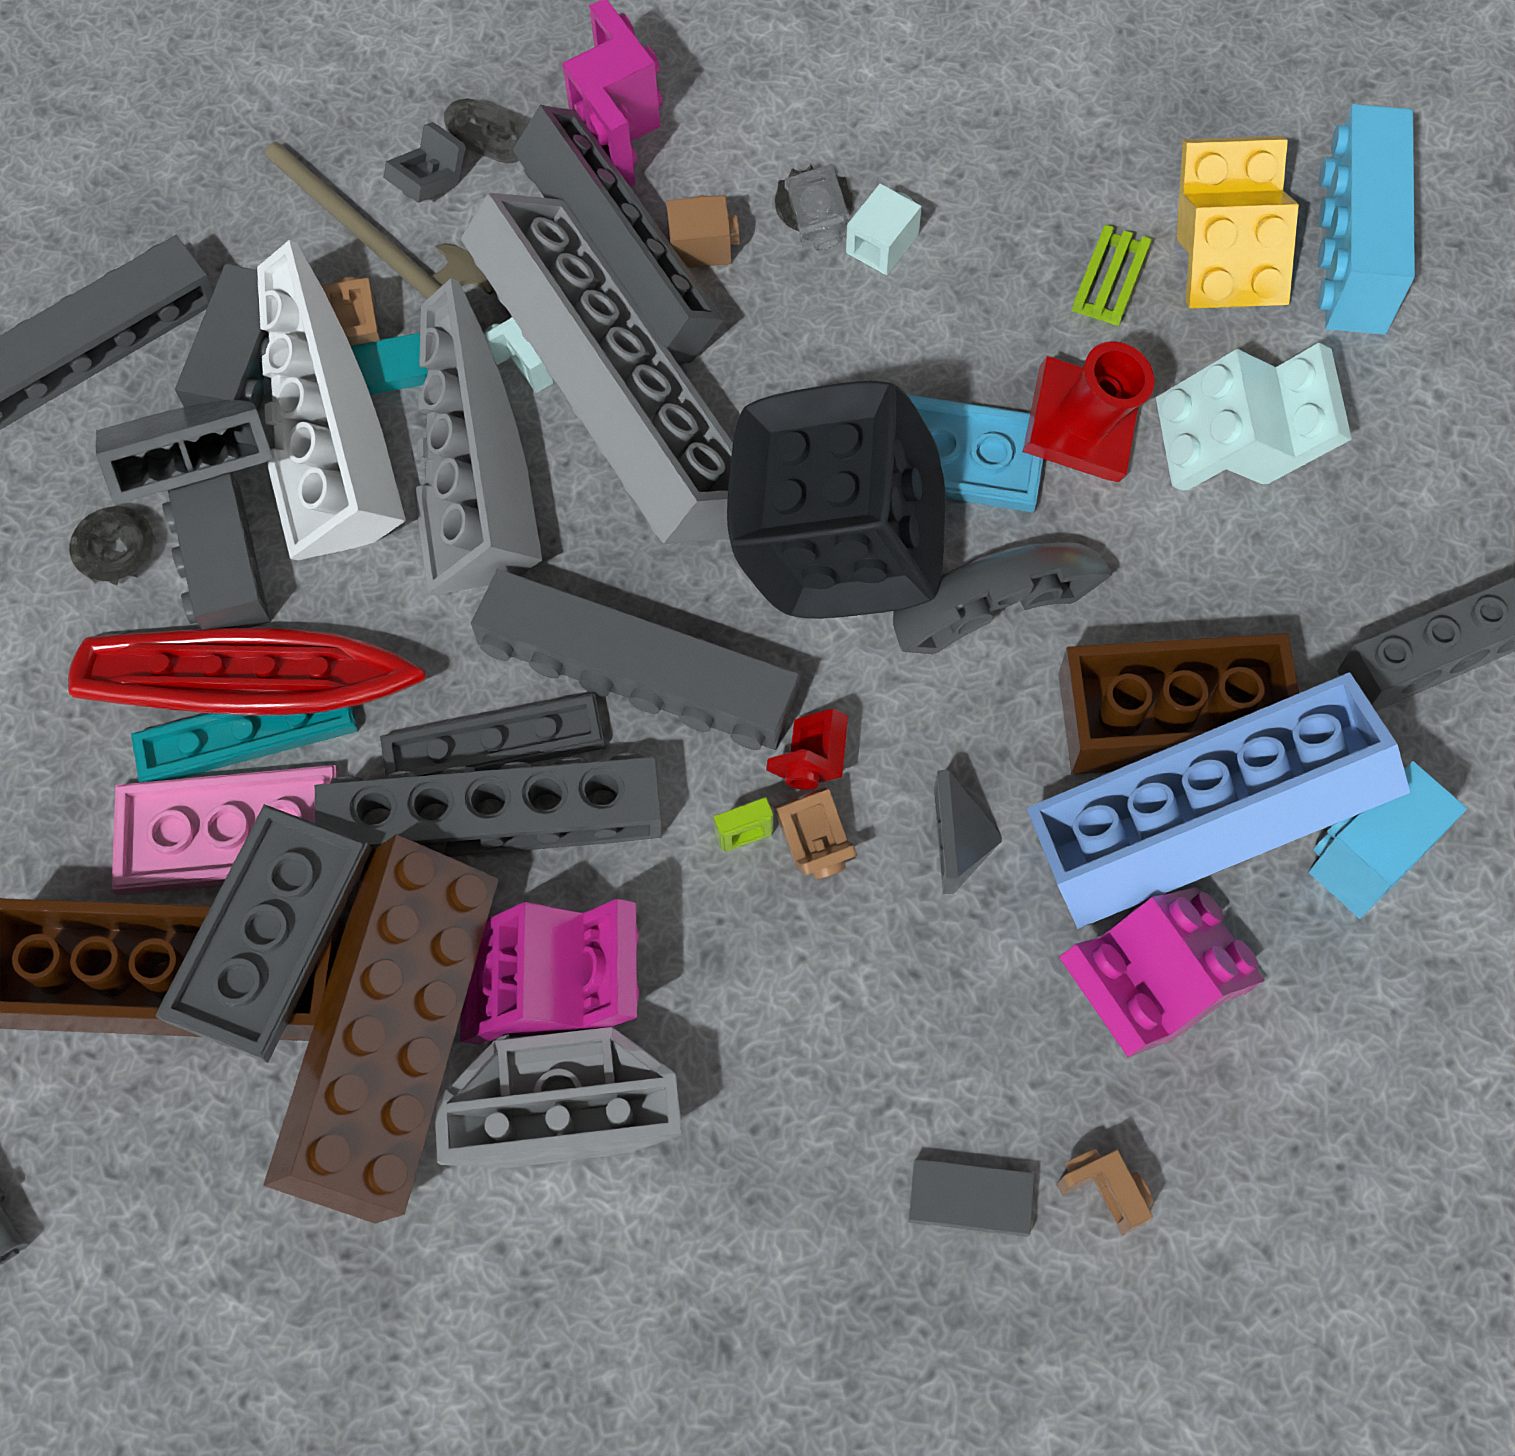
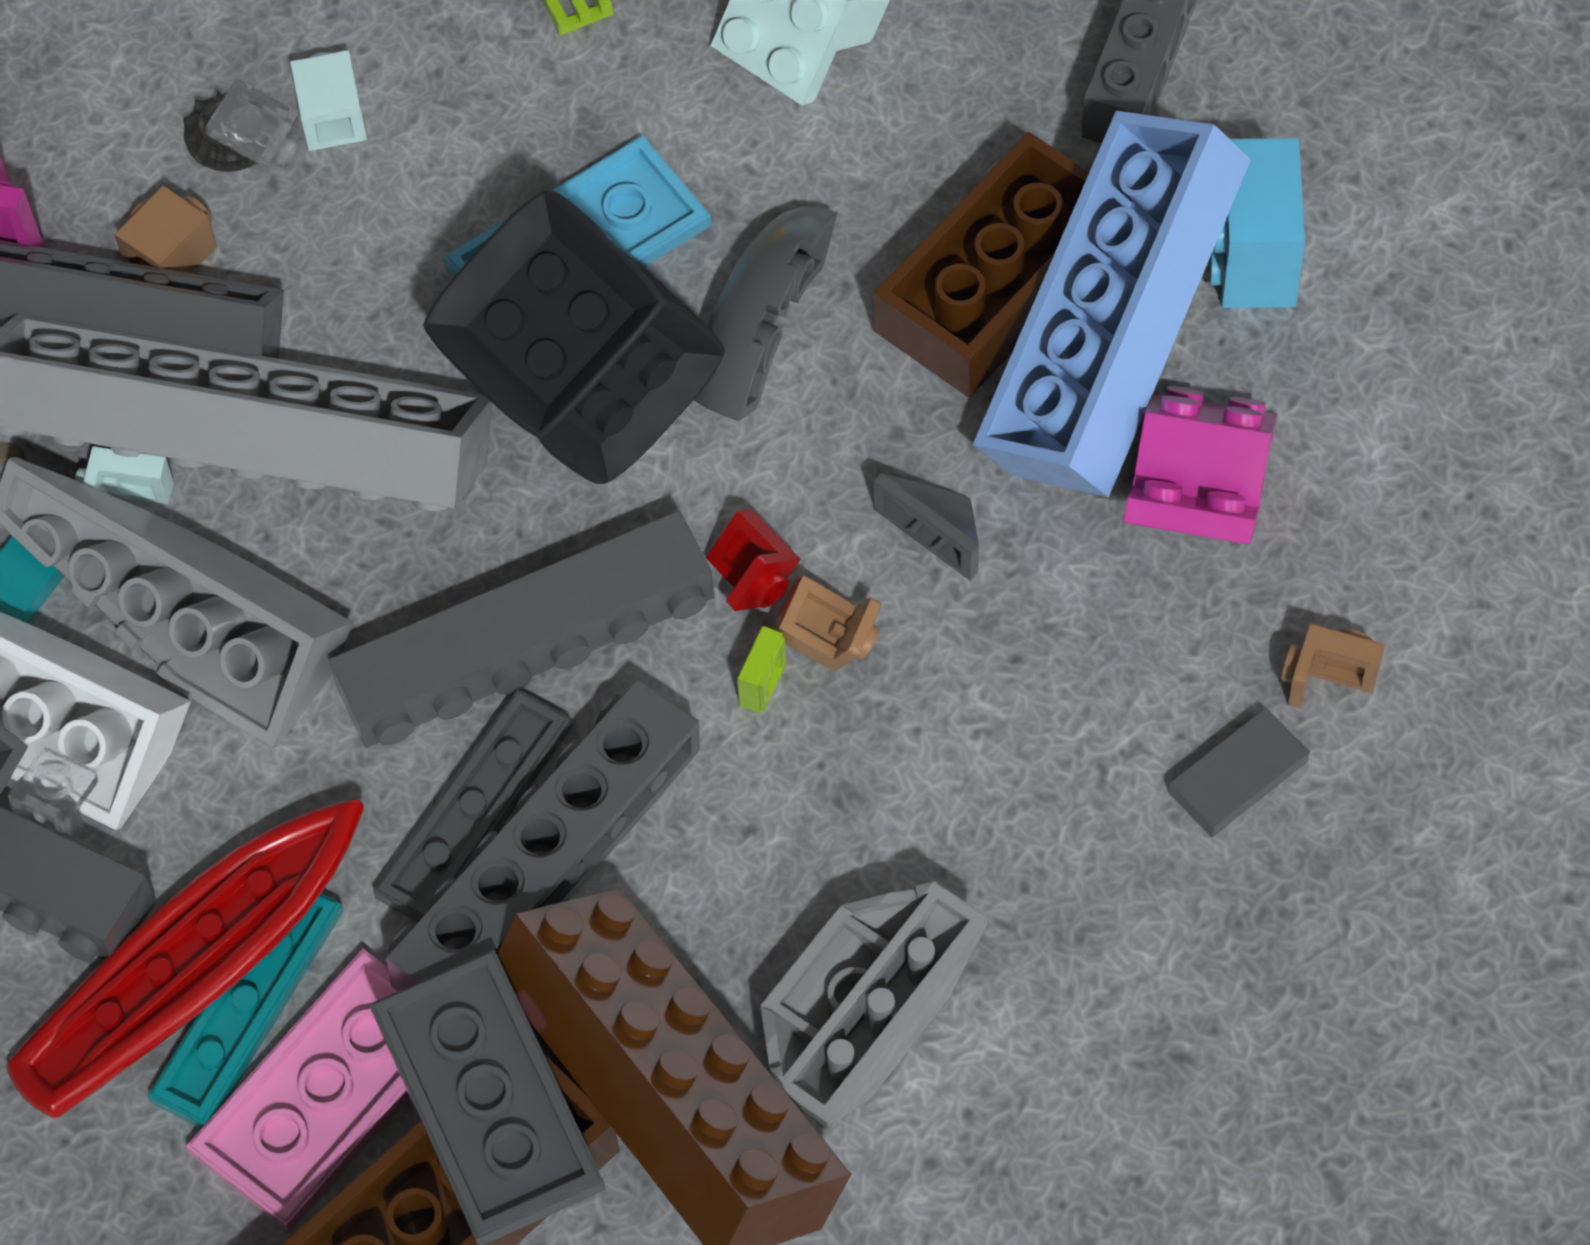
camera: 45 degrees left, 5 degrees down
(267, 503) = (53, 793): none -> clear bracket
(553, 972) = (751, 905): dark pink bracket -> none
(1089, 411) = (675, 105): red plant -> none

